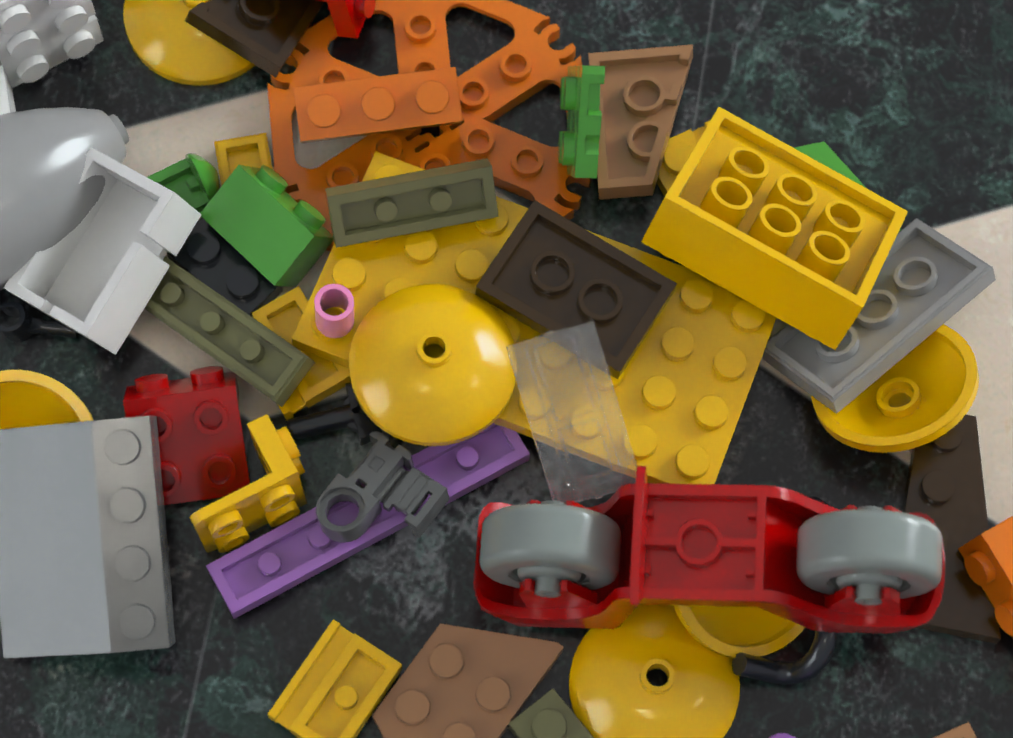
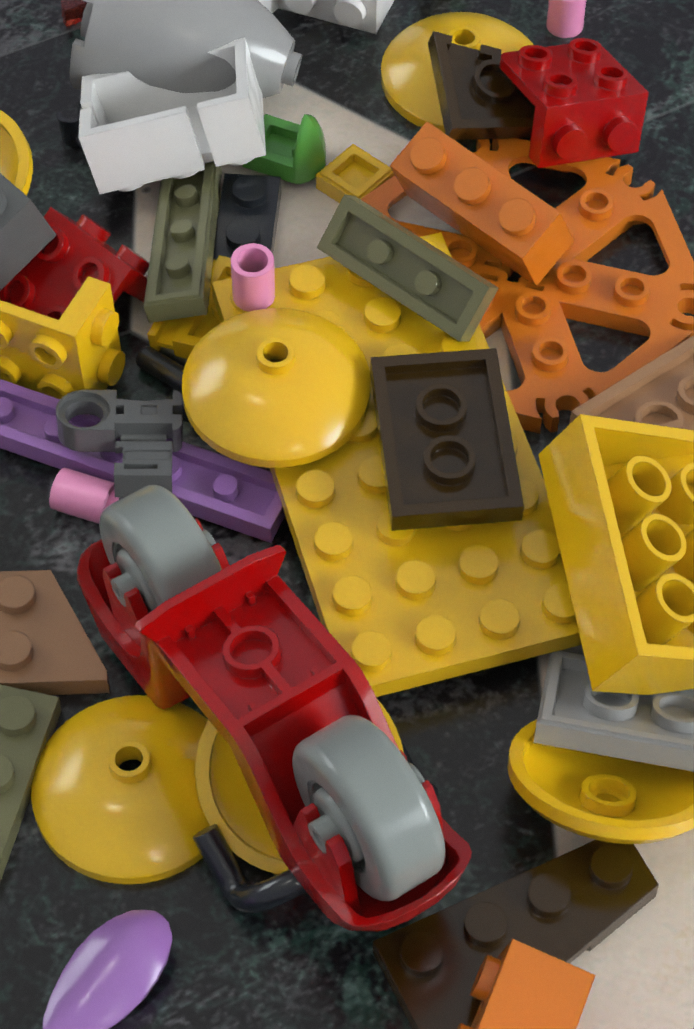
camera: 55 degrees right, 15 degrees down
(268, 224) = (300, 203): bright green brick -> none
(391, 557) = (81, 494): none -> bright pink hinge
(573, 413) = (328, 503): clear piece -> none
(581, 98) = (610, 326): bright green wing -> none

